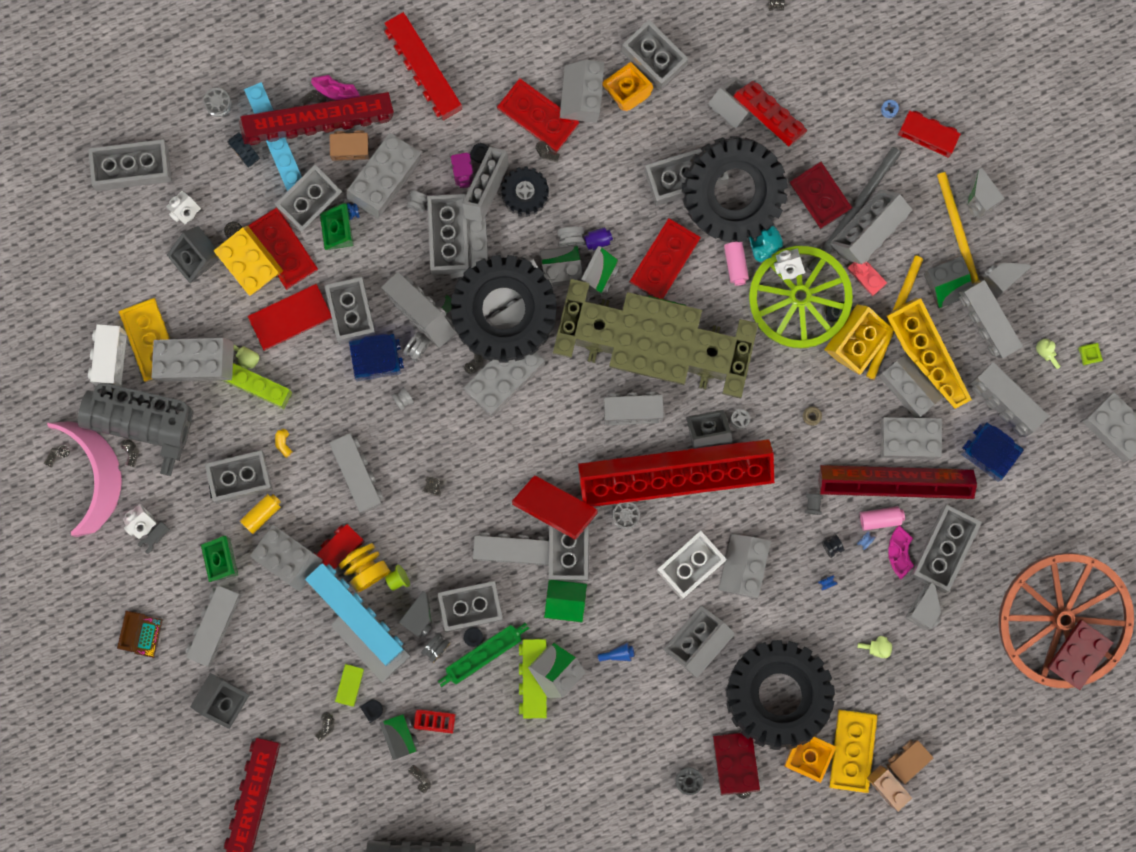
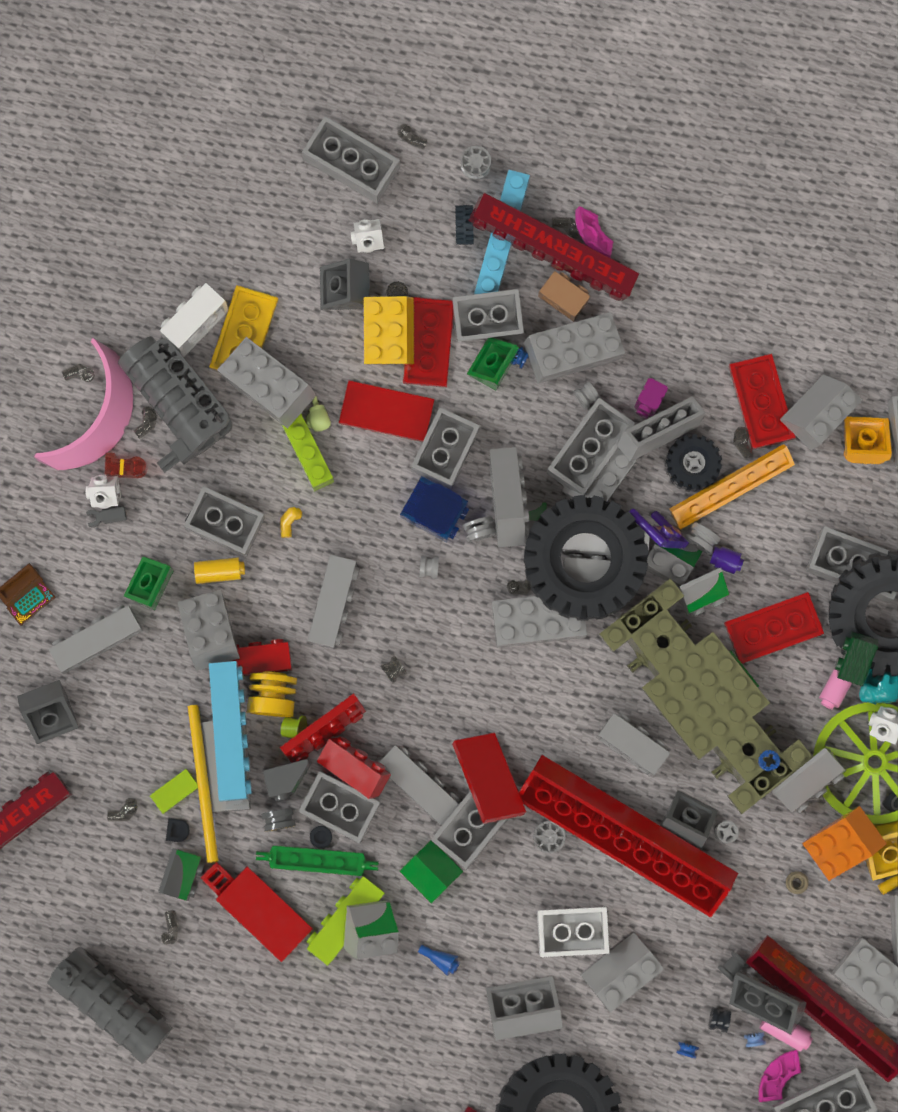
camera: 40 degrees right, 0 degrees up
(144, 492) = (125, 468): none -> clear red leg
(165, 118) = (410, 138): none -> clear smoke arm
(365, 664) = (203, 784): none -> yellow piece
(418, 560) = (318, 733): none -> red plate
(423, 66) = (690, 274): red brick -> none
(458, 571) = (354, 767): none -> red brick
(476, 718) = (264, 914): none -> red tile
(478, 152) = (679, 393): black tile -> none
(541, 252) = (665, 534): none -> dark purple plate
(563, 187) = (732, 486): none -> light orange plate
(733, 342) = (775, 756): none -> blue bush
(735, 236) = (856, 659): none -> dark green brick
(768, 341) = (810, 781): none -> light grey slope
(823, 364) = (844, 843): none -> orange brick
(854, 509) = (766, 1002): none -> dark grey slope

